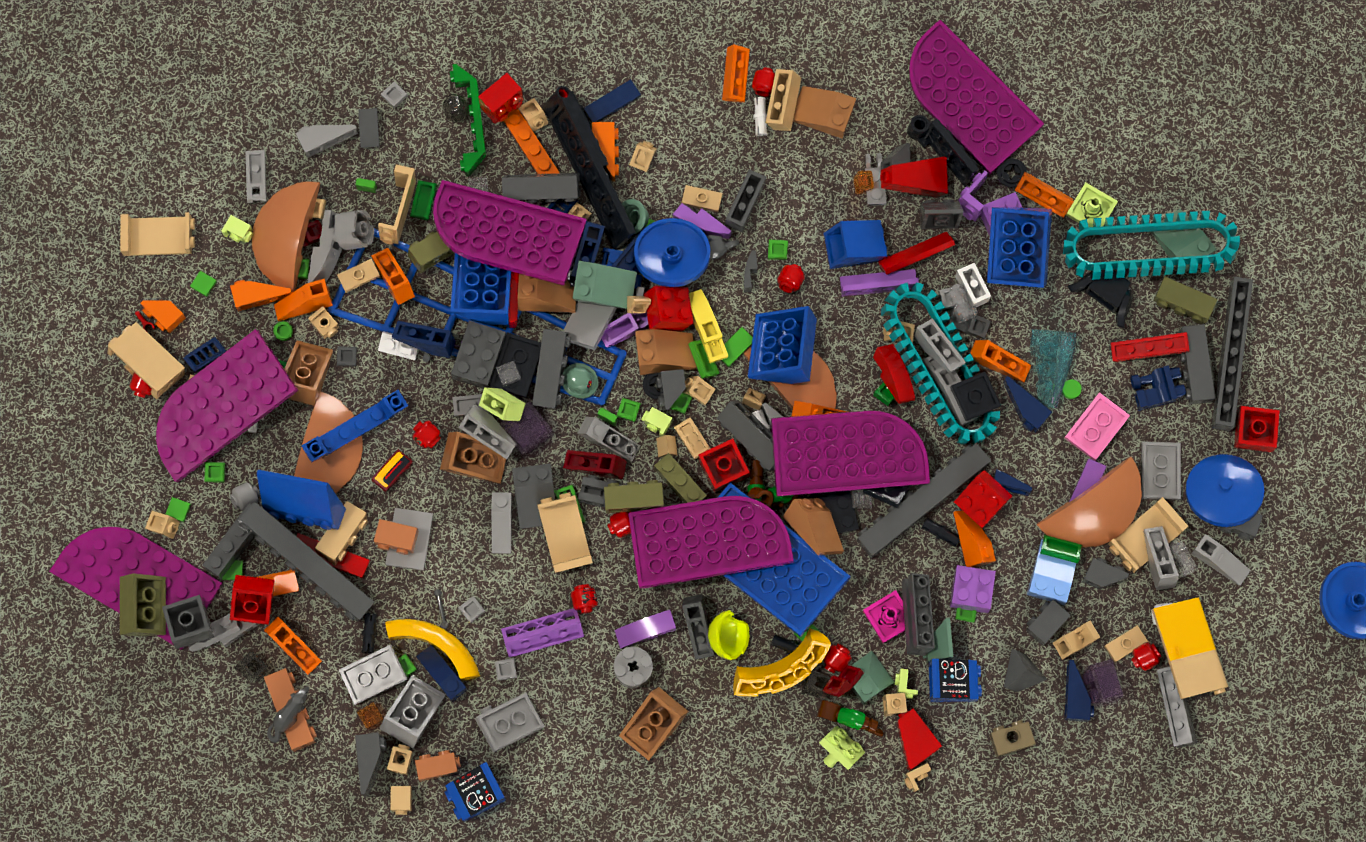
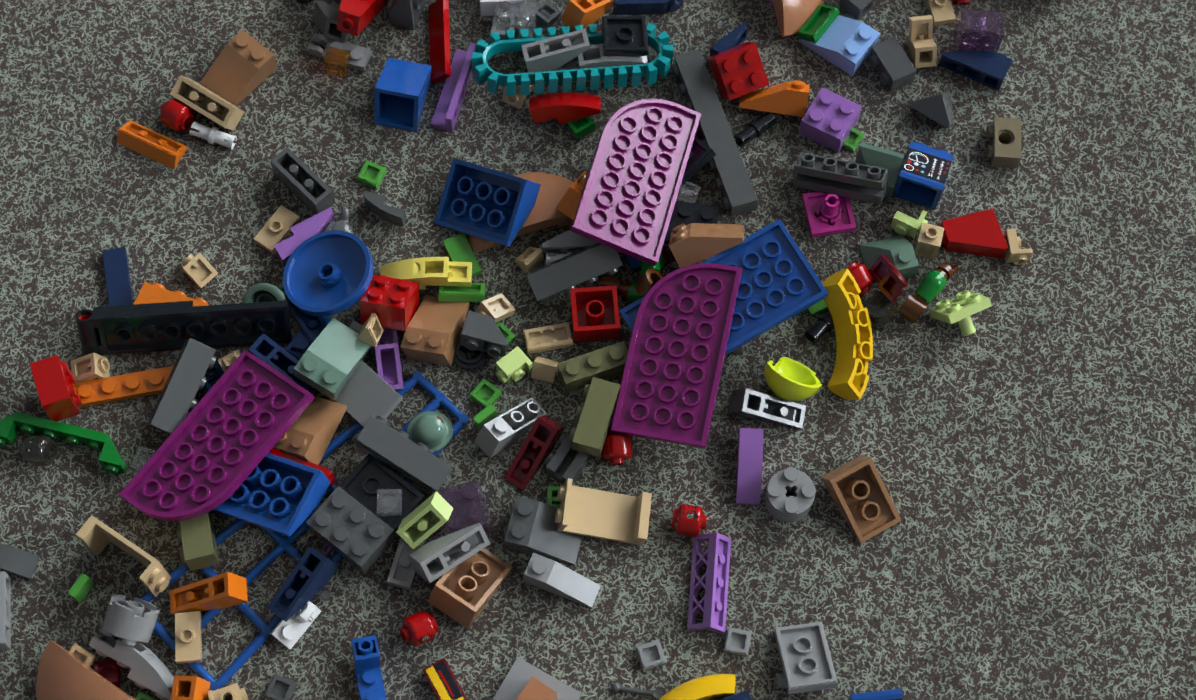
camera: 70 degrees left, 10 degrees down
(423, 200) = (132, 529): green tile -> none
(790, 278) = (411, 170): red head -> none

